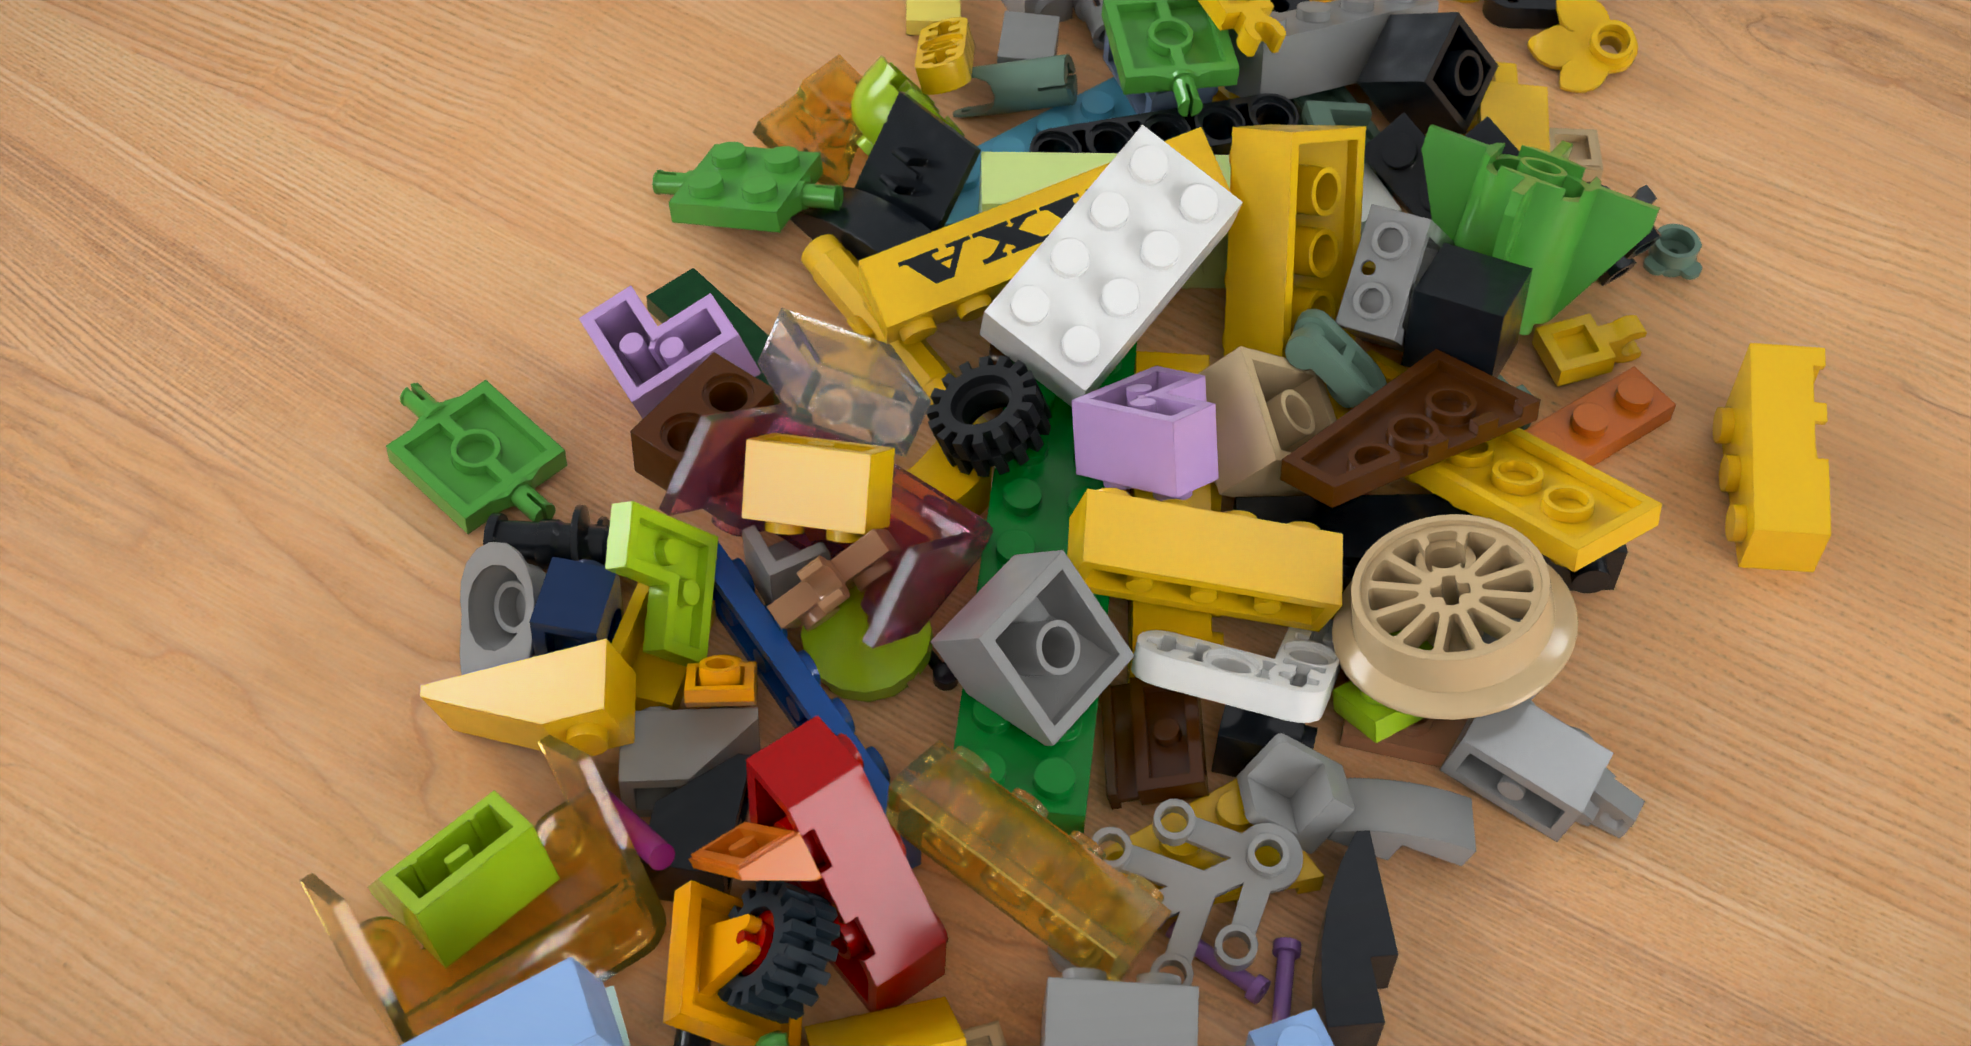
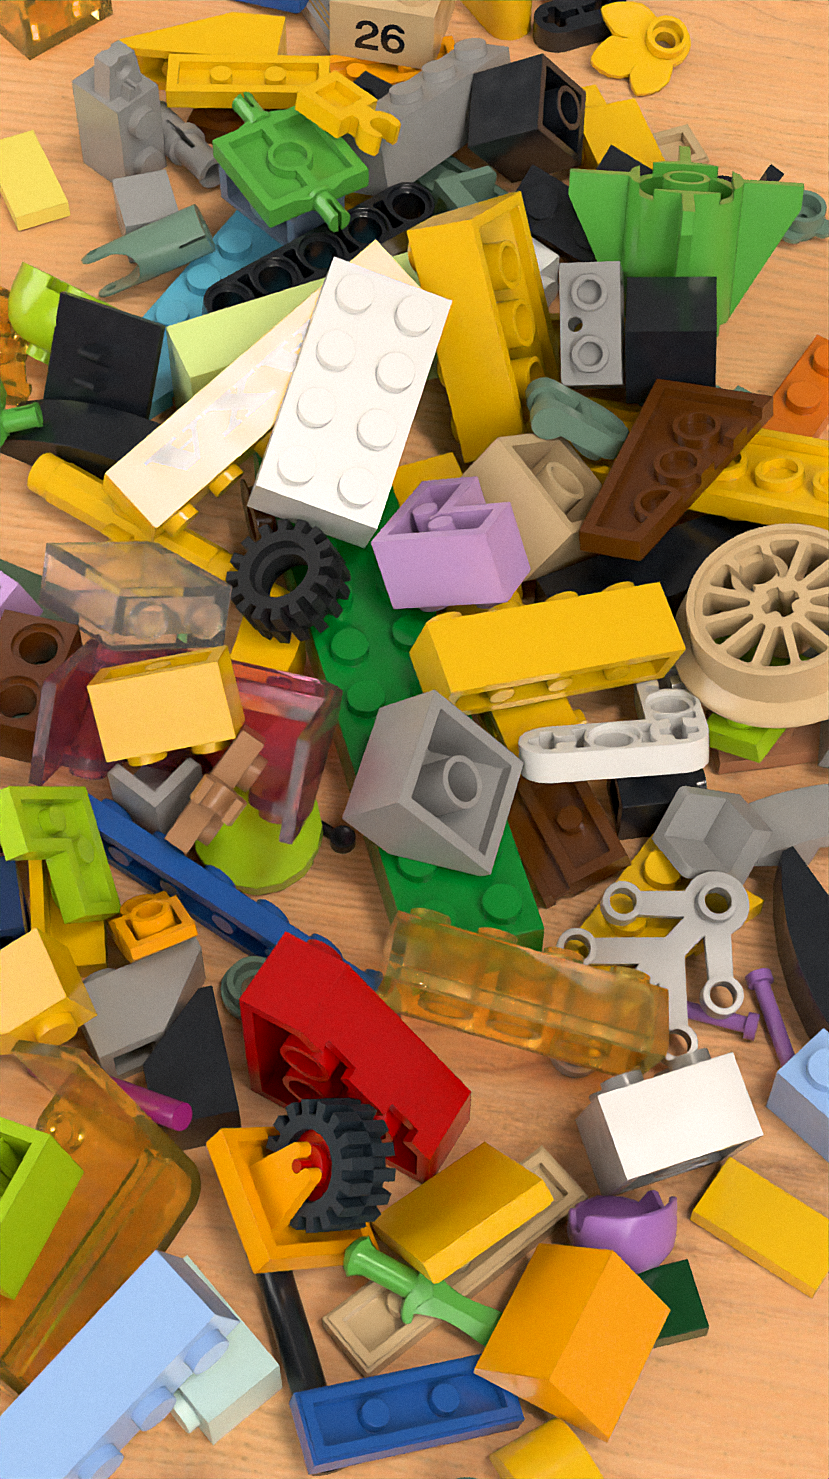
camera: 20 degrees left, 5 degrees up
(758, 855) = (275, 1083): orange slope -> none
(945, 56) = (74, 241): yellow beam -> none
(1582, 349) = (768, 334): yellow plate -> none

